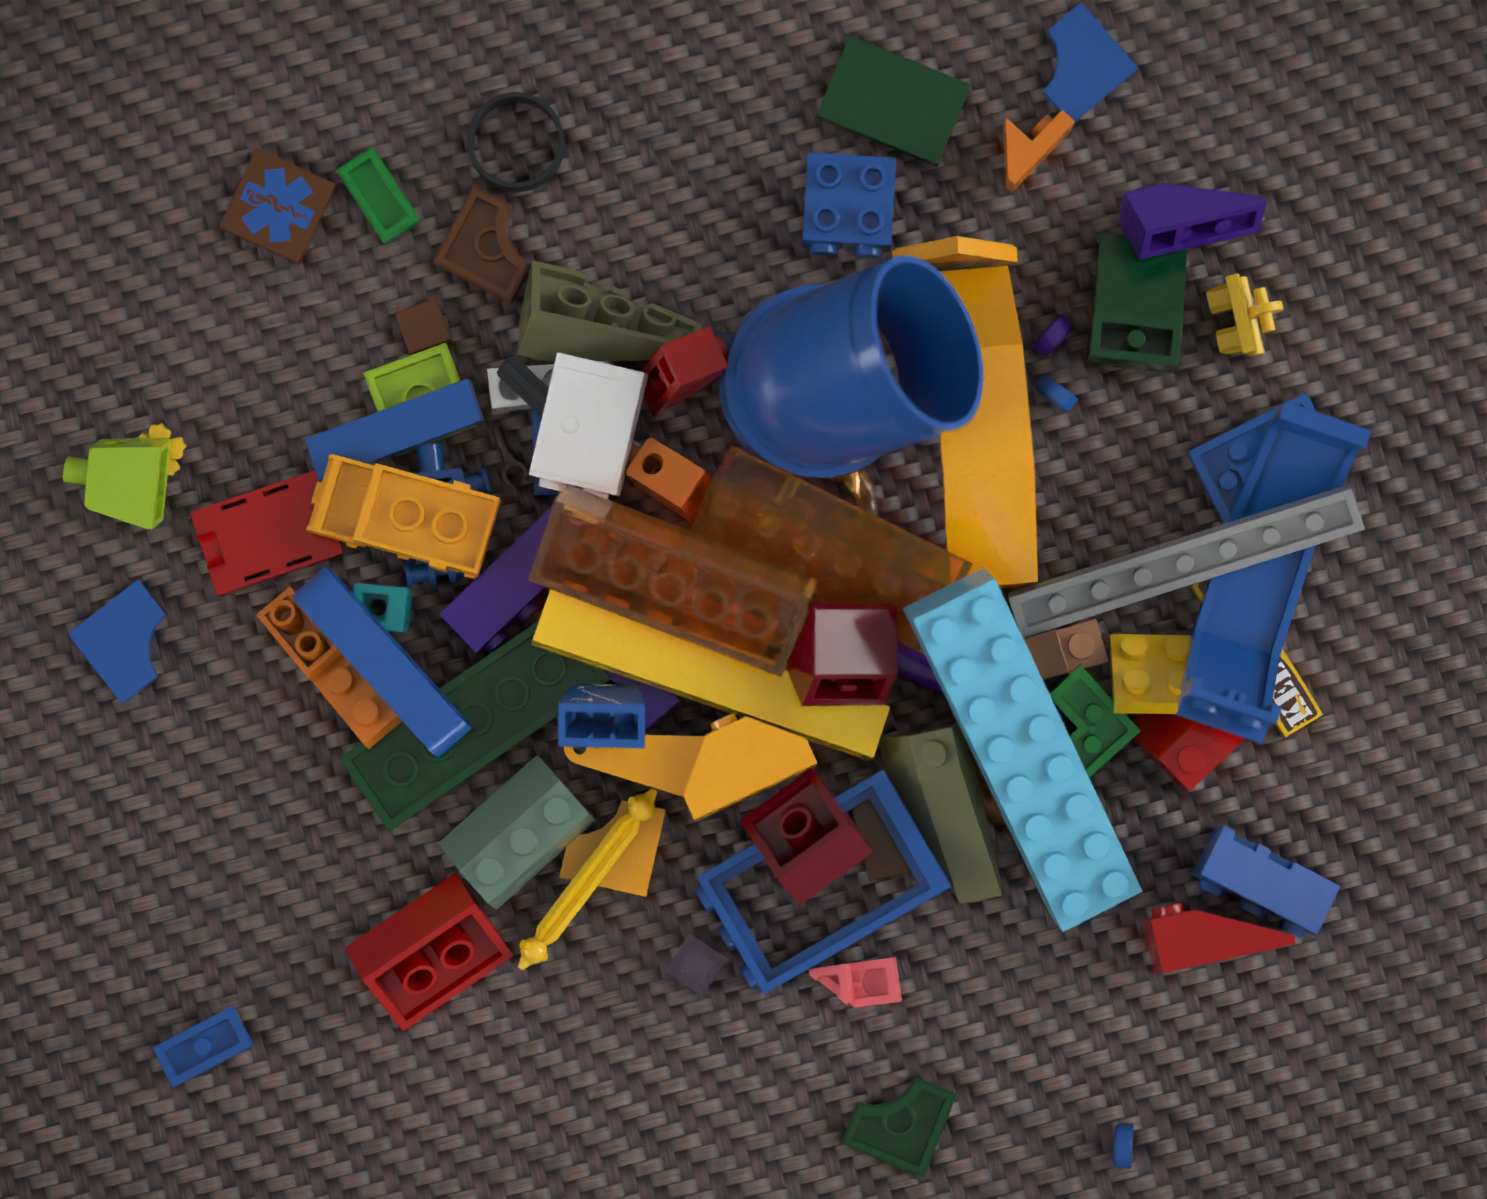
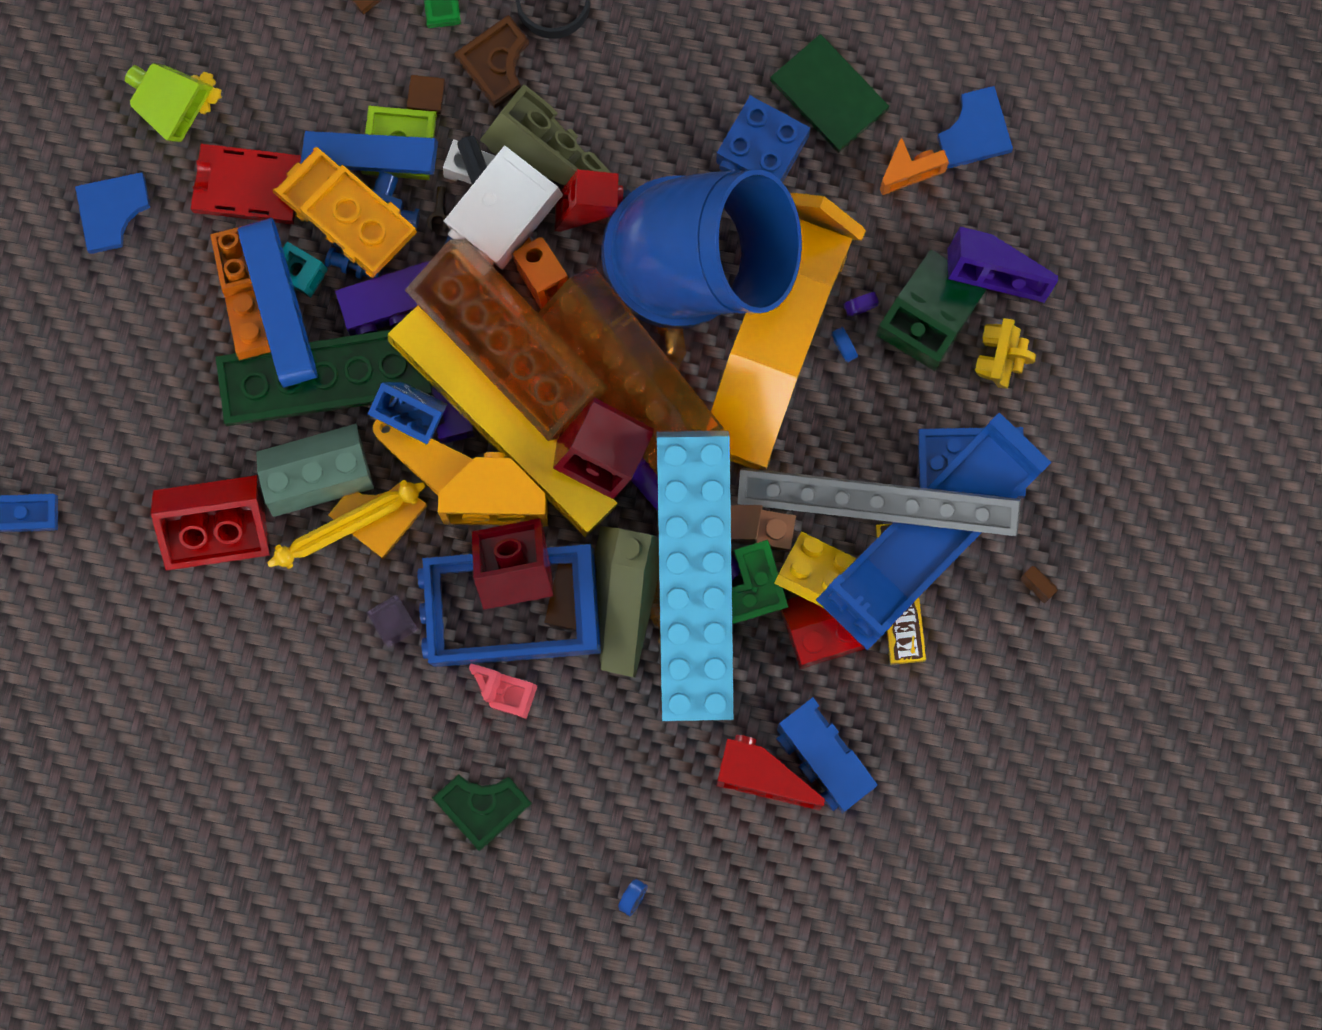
camera: 25 degrees right, 5 degrees down
(1410, 566) = (1039, 584): none -> reddish brown tile

